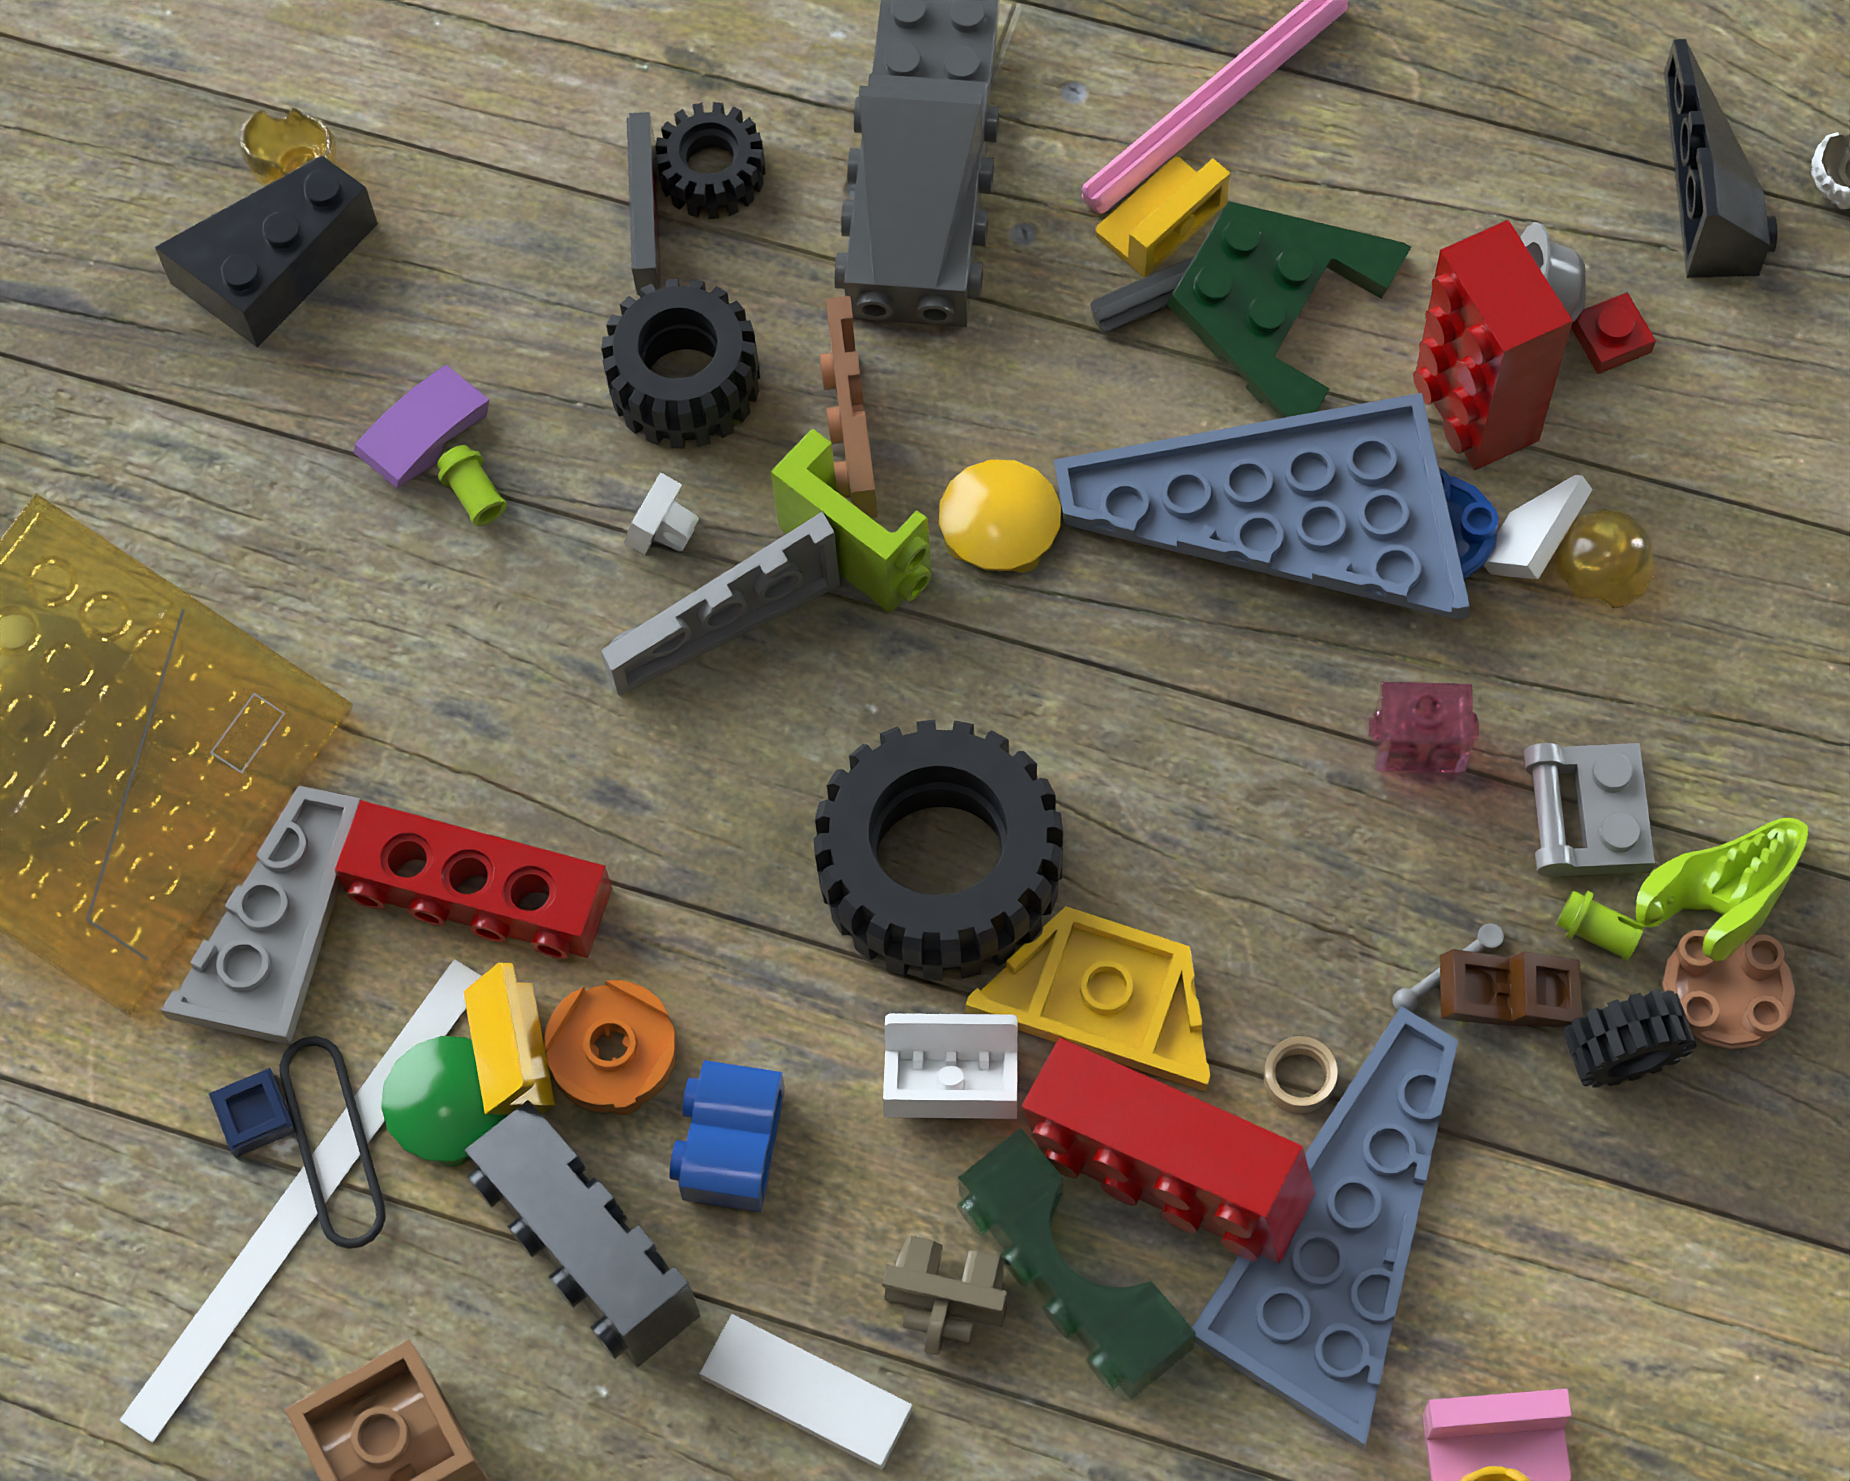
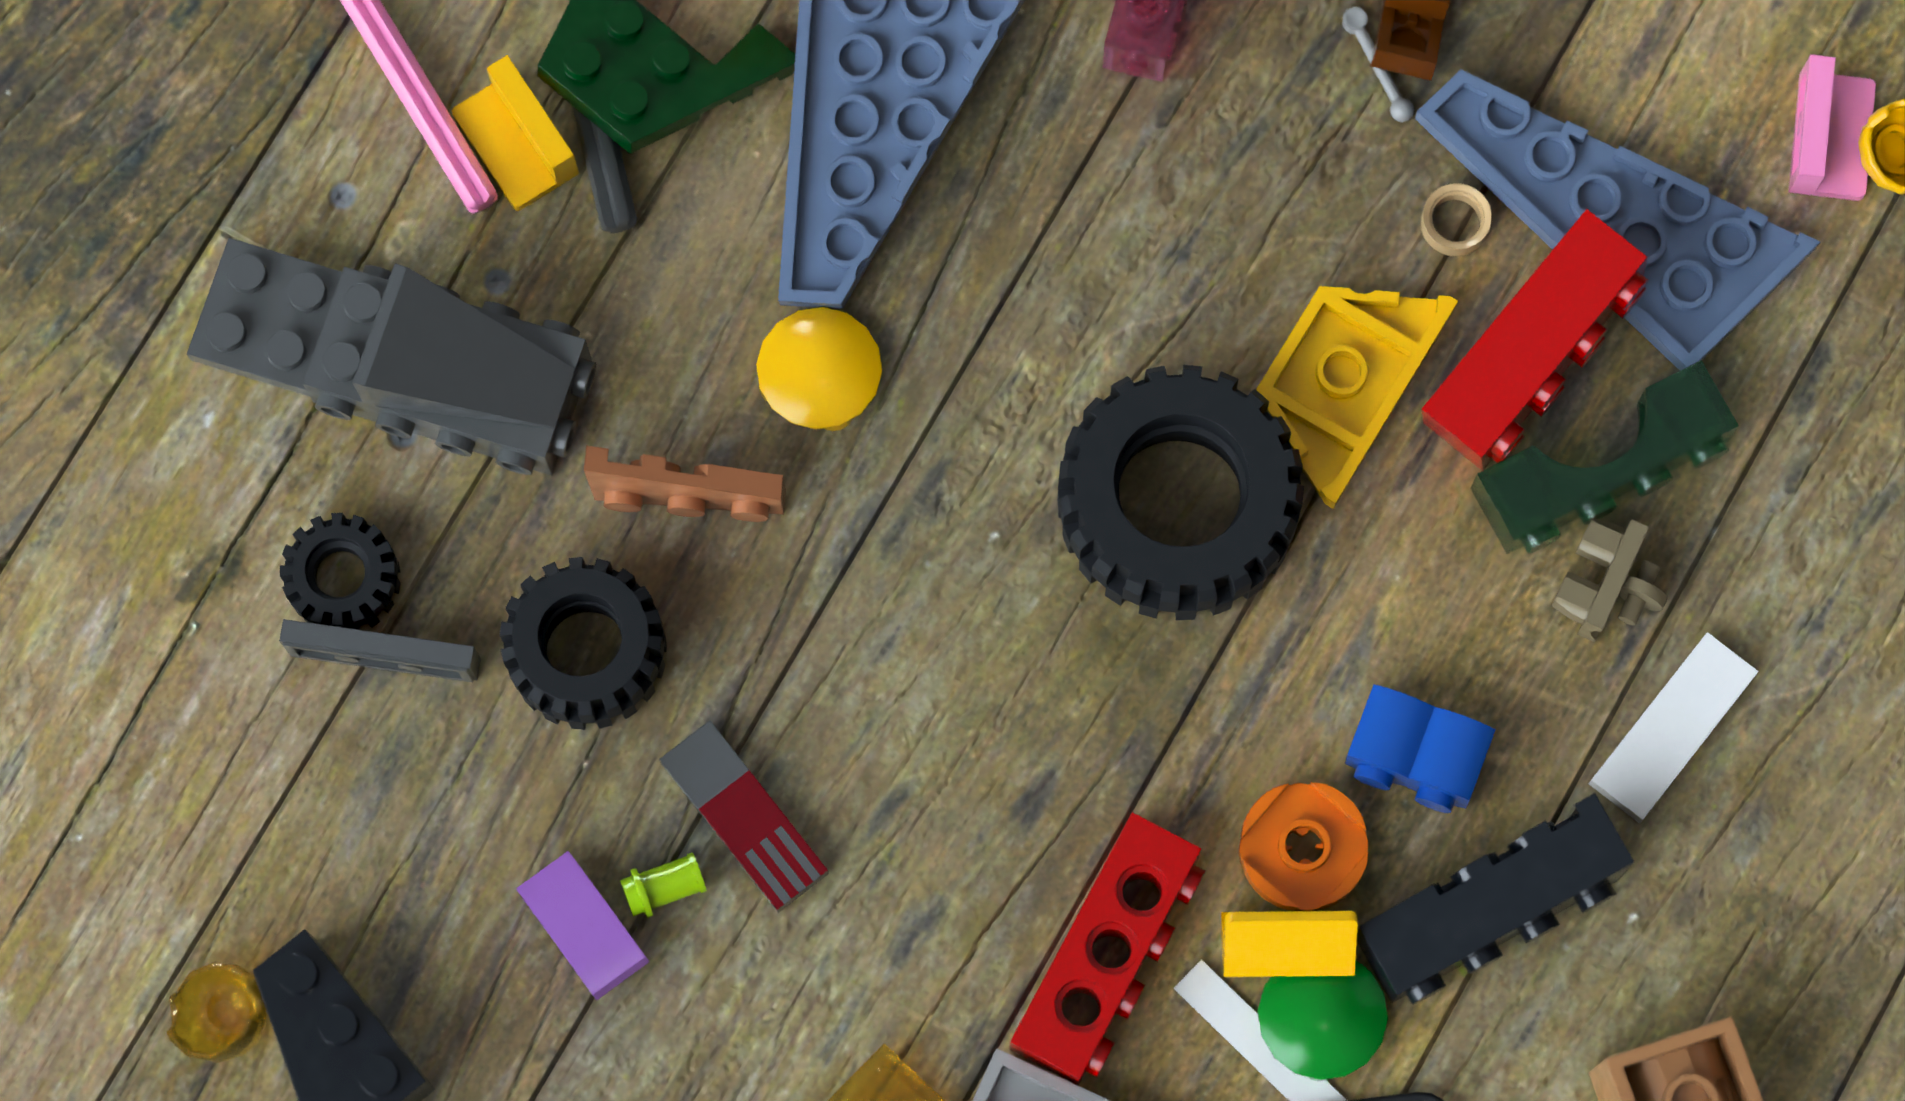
camera: 80 degrees left, 10 degrees up
(550, 542) = (744, 816): none -> tile
(661, 518) = (749, 699): white tile -> none
(746, 596) = (861, 632): light grey wing -> none
(868, 556) = (825, 517): lime panel -> none
(950, 1066) = (1394, 530): white bracket -> none

